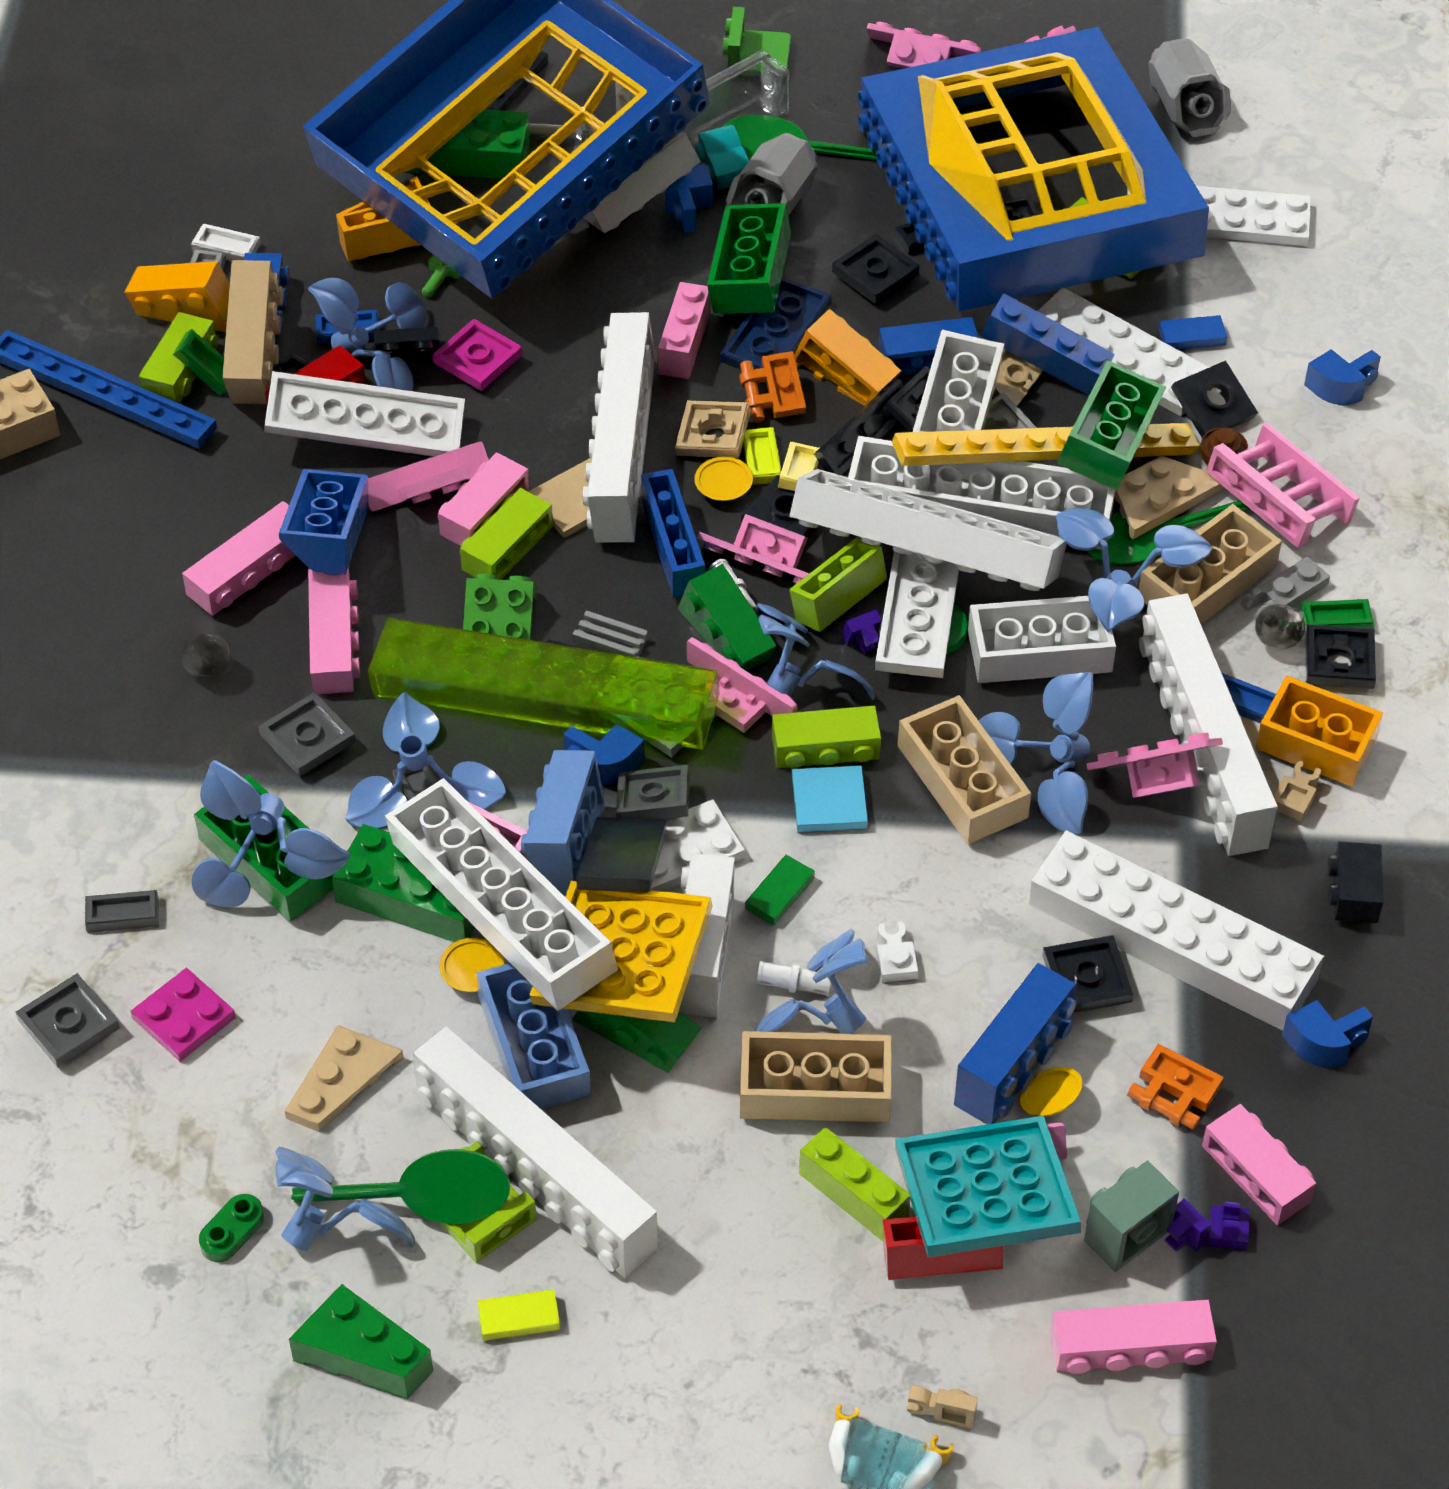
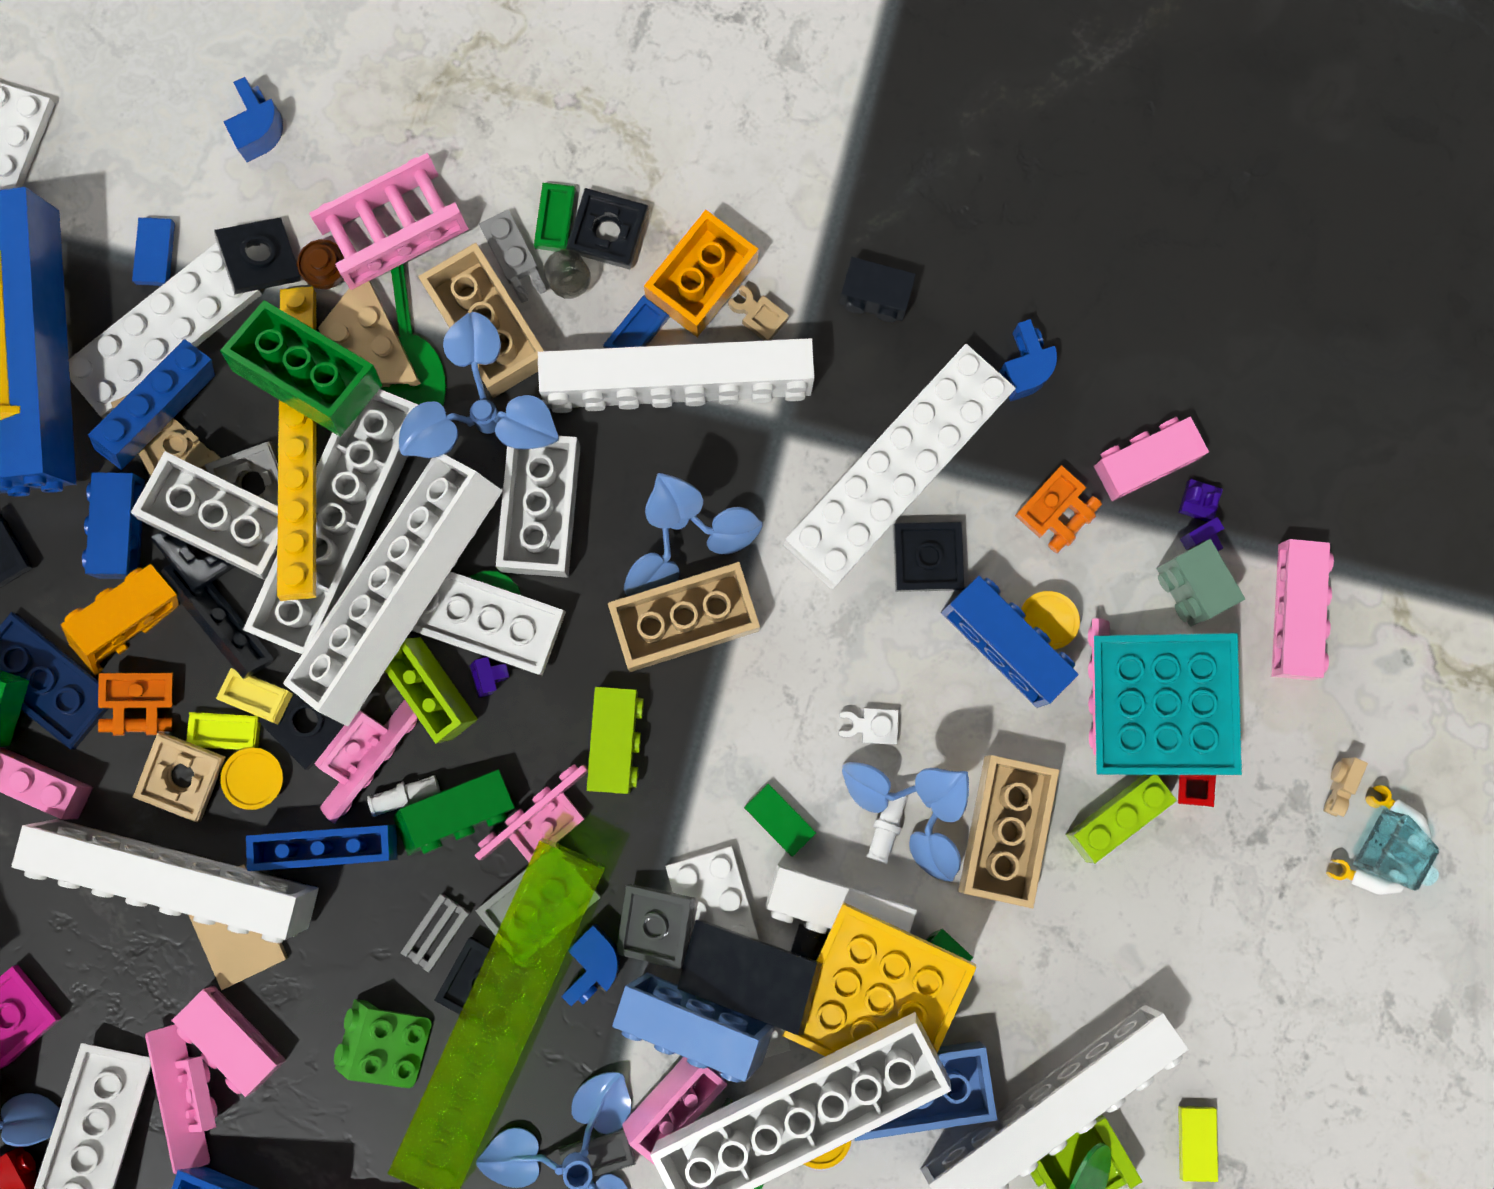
camera: 85 degrees left, 30 degrees up
(507, 535) = (283, 1023): lime brick -> none
(786, 675) = (526, 770): medium blue plant -> none
(829, 799) = (681, 751): medium azure tile -> none
(1160, 769) = (725, 431): bright pink bracket -> none

